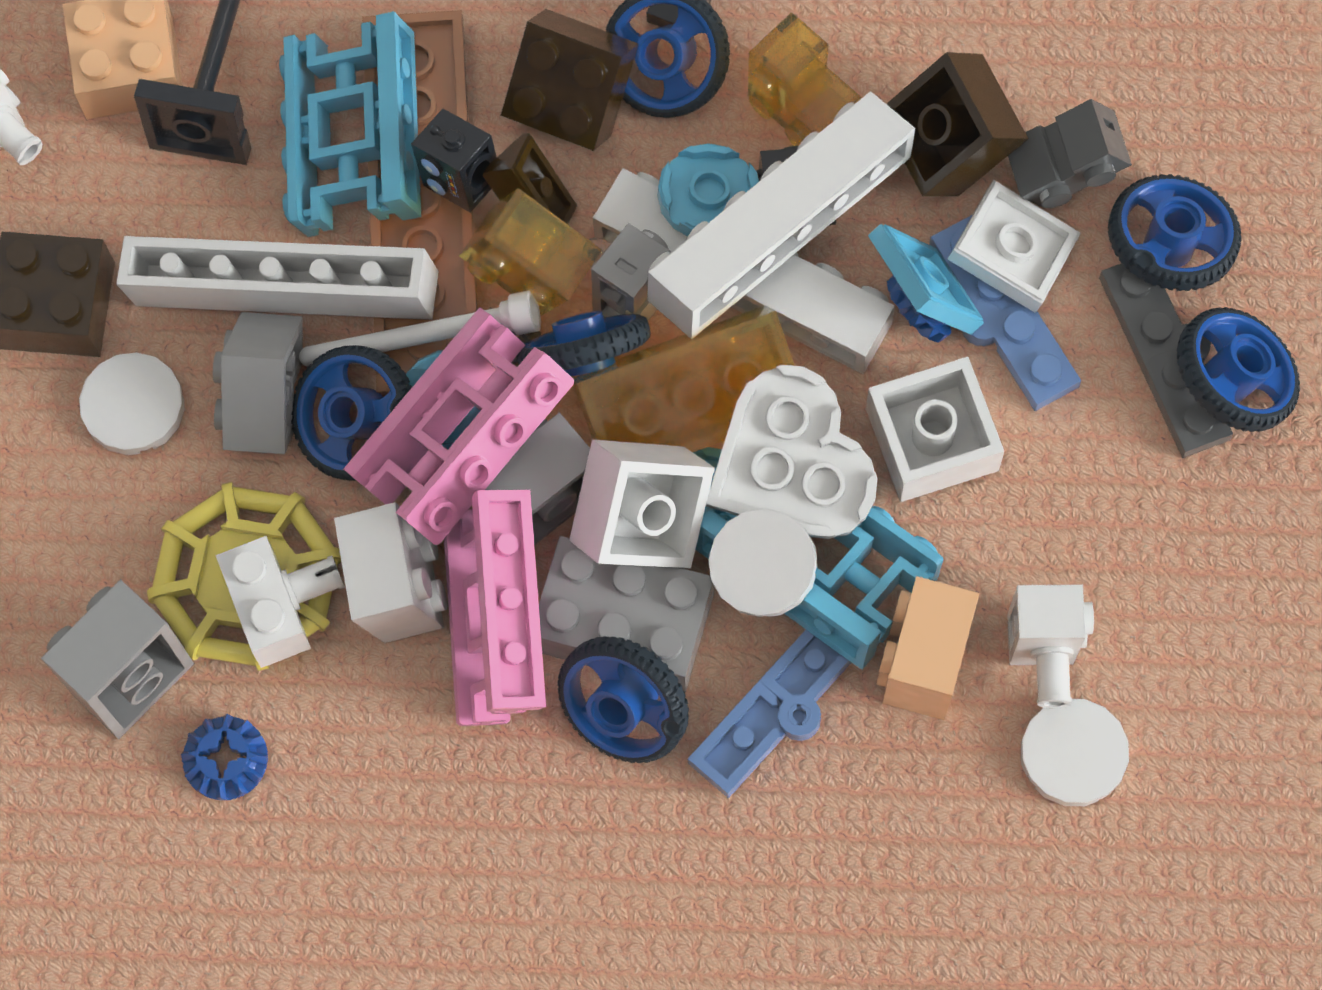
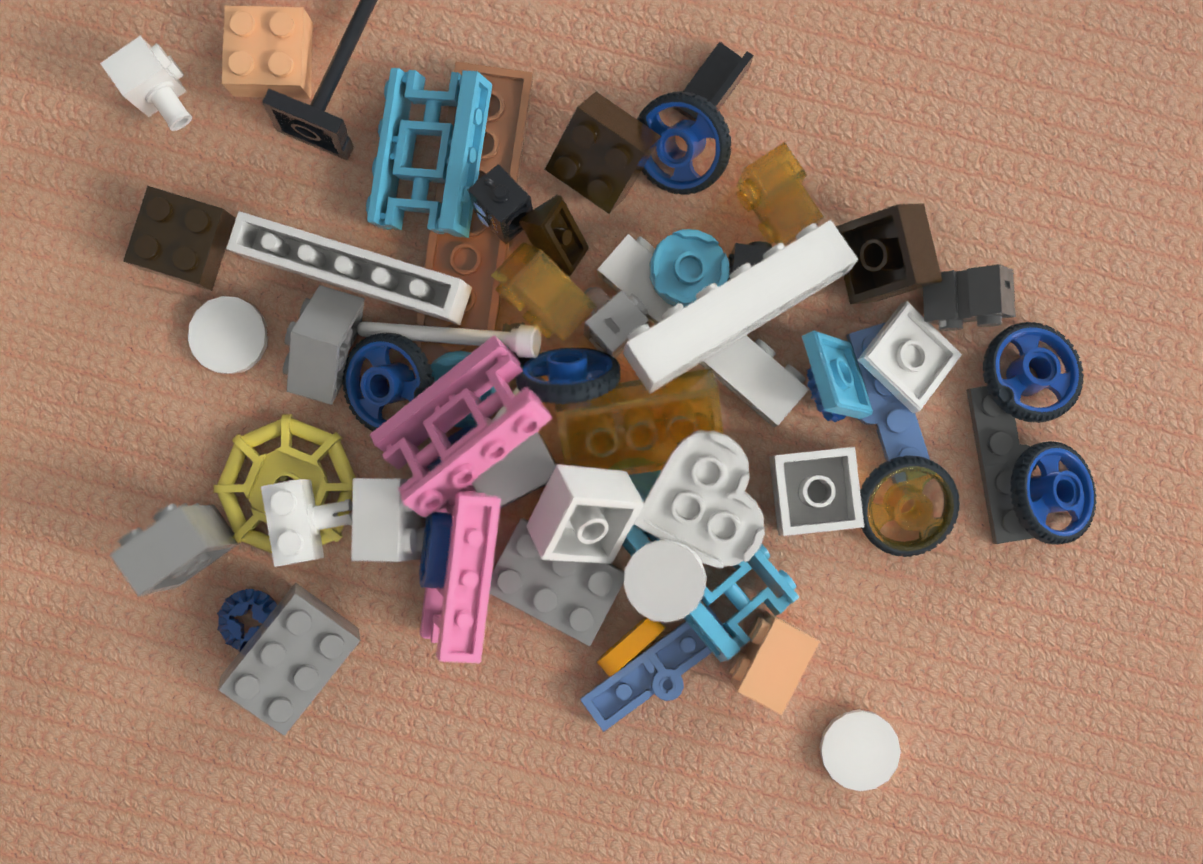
camera: 15 degrees right, 15 degrees up
(291, 782) = (289, 659): none -> light grey brick
(457, 592) = (435, 550): none -> blue beam
(628, 694) = (545, 650): blue wheel -> none
(739, 675) = (629, 645): none -> light orange beam
(1047, 631) = (864, 668): white brick -> none
(1096, 451) = (931, 529): none -> clear yellow wheel

